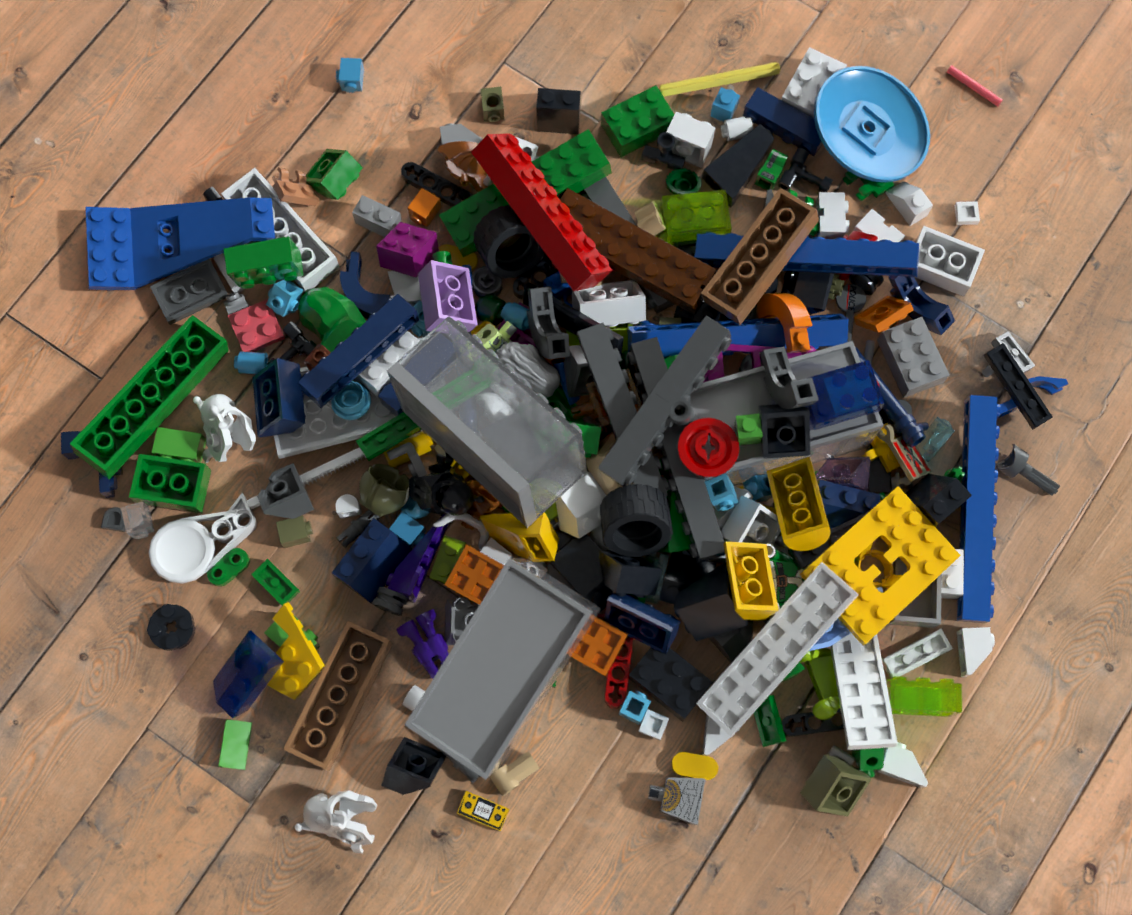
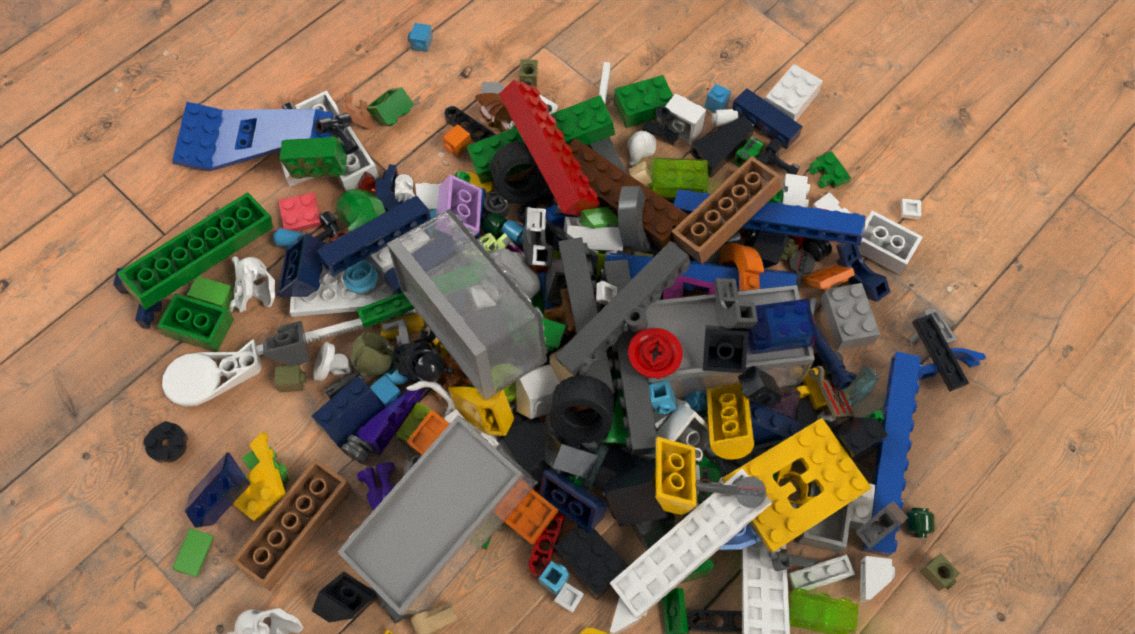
camera: 10 degrees right, 10 degrees down
(113, 520) = (143, 346): dark grey tile -> none
(137, 520) = (161, 348): clear brick -> none
(189, 291) = (252, 177): dark grey plate -> none
(229, 568) = (227, 400): green plate -> none
(235, 302) = (287, 191): light grey plate -> none
(275, 582) = (263, 418): green plate -> none
(280, 217) = (336, 127): none -> black bar
(284, 297) = (327, 191): medium azure brick -> none
(328, 506) = (322, 362): none -> white tile
(329, 277) = (367, 182): none -> clear red tile
(373, 275) = (403, 188): none -> white piece
(375, 216) = (417, 143): light grey brick -> none
(407, 249) = (434, 167): magenta brick -> none
(558, 111) = (579, 81): black slope -> none
(586, 104) = (605, 81): none -> white tile
(613, 286) = (598, 218): none -> bright green slope
(641, 384) = (605, 292): none -> white plate
(643, 180) = (640, 146): none -> white hair
(651, 283) = (630, 218): none -> dark grey arch
(683, 182) = (673, 150): dark green hat -> none
(720, 79) = (722, 80): light yellow axle -> none
(748, 429) = (693, 343): bright green brick -> none
(822, 674) = (731, 582): lime torso -> none
(827, 464) = (760, 387): none -> black brick
(832, 587) = (749, 491): none -> dark grey piece
(876, 649) = (783, 560): none -> dark grey sword
(891, 111) = (859, 130): dark azure dish -> none
(910, 202) = (863, 194): white slope -> none
(974, 86) = (930, 115): coral bar -> none
(975, 593) = (881, 524): none -> flat silver arch
(1015, 580) = (920, 522): none -> dark green head
(1017, 463) = (932, 419): dark grey piece -> none
(1031, 632) = (930, 571): none -> olive brick

